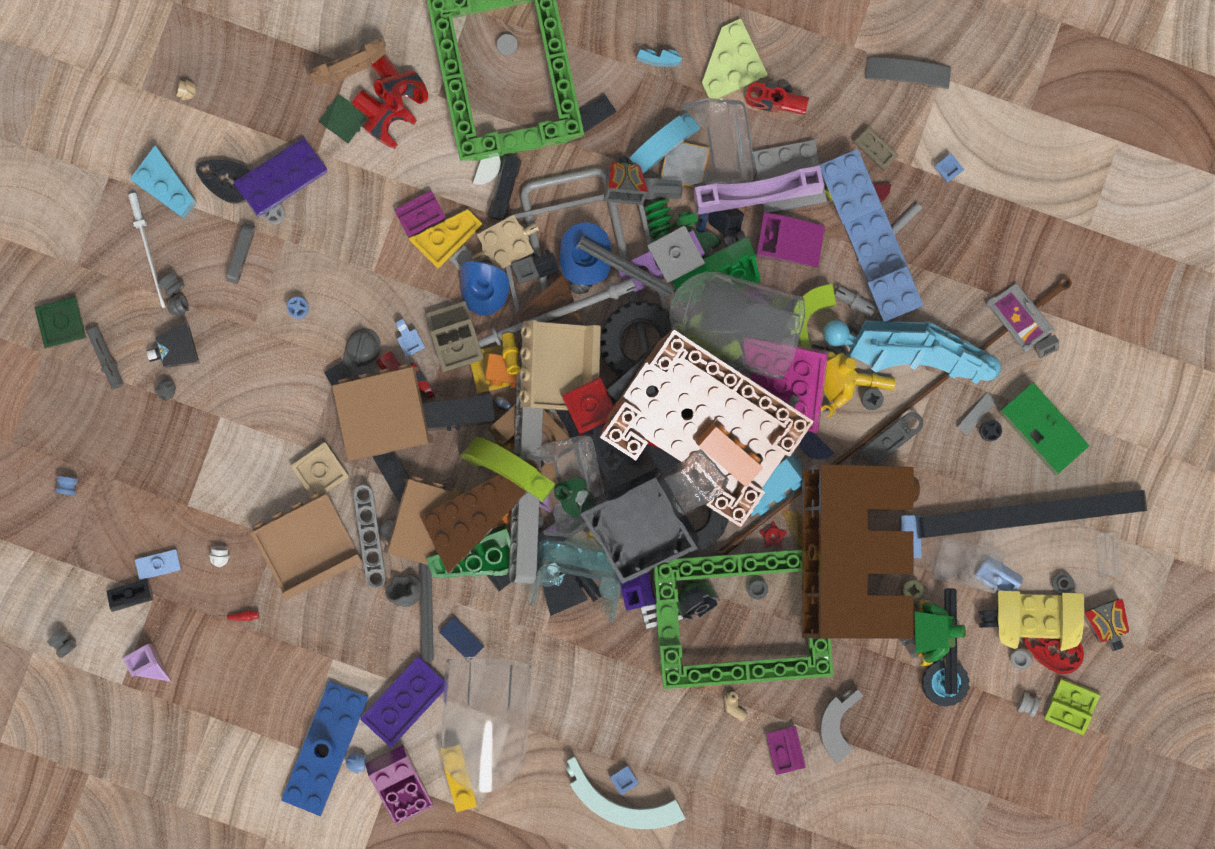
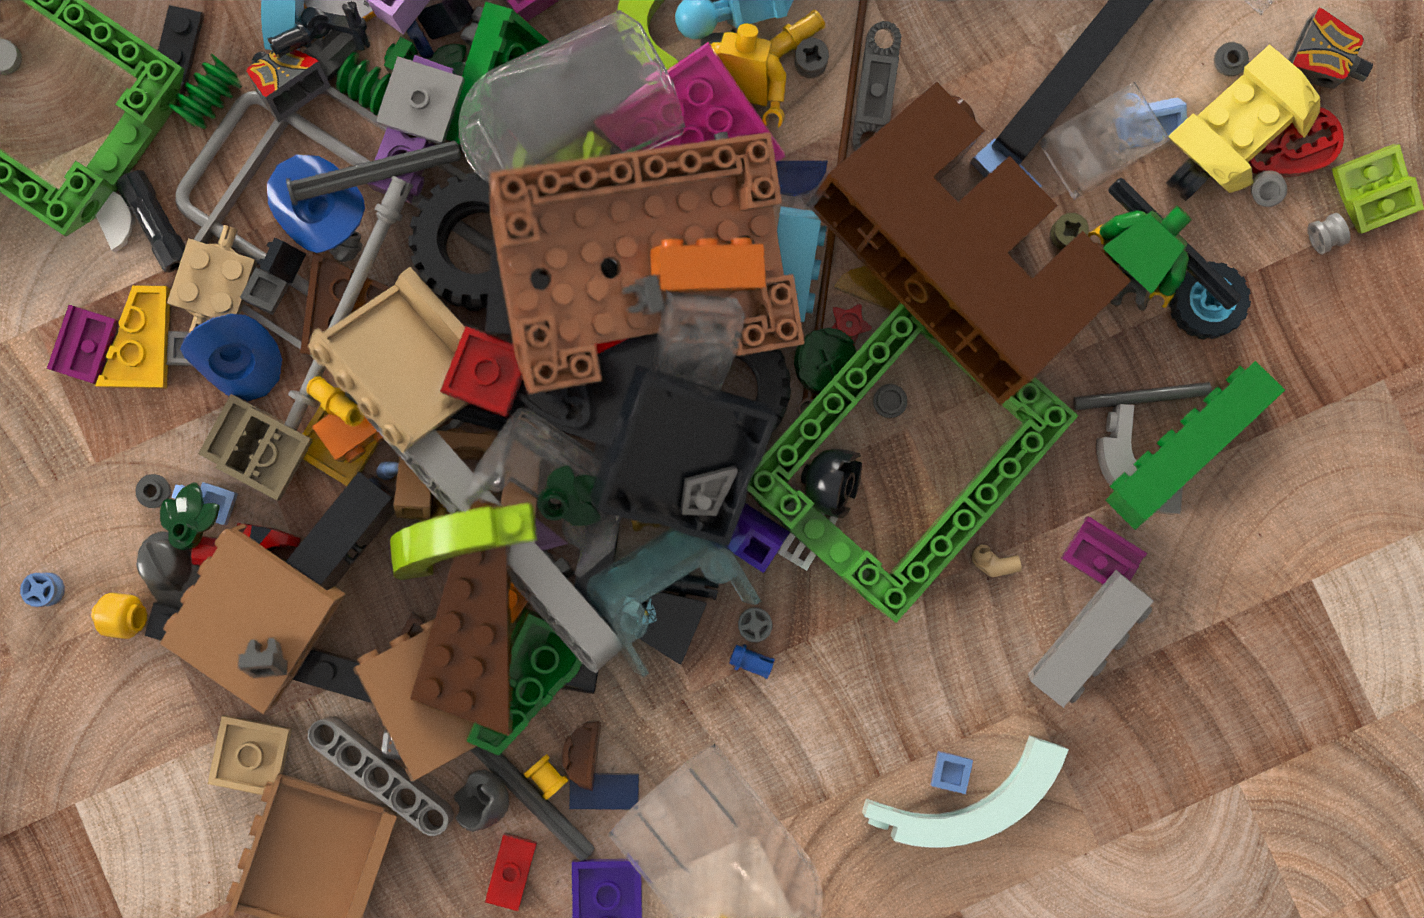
camera: 35 degrees left, 0 degrees up
(321, 353) = (119, 615): none -> yellow head
(371, 440) = (263, 664): none -> dark grey tile
(386, 635) = (511, 872): none -> red plate
(395, 310) = (162, 486): none -> dark grey plate
(396, 336) = (187, 517): none -> dark green plate
(442, 608) = (546, 777): none -> yellow bush
(467, 613) = (581, 753): none -> reddish brown plate
(582, 645) = (751, 661): none -> blue pin
(583, 153) = (206, 93): none -> green piece
(600, 630) = (756, 629): none -> dark grey wheel
(635, 551) = (707, 491): none -> light grey piece
(662, 171) = (317, 25): none -> black pin
(691, 443) = (648, 295): none -> dark grey tile
(743, 780) = (1090, 639): none -> light grey brick
(745, 540) = (822, 357): none -> dark green tile
(872, 739) = (1194, 445): none -> green brick
(873, 696) = (1142, 396): none -> dark grey bar

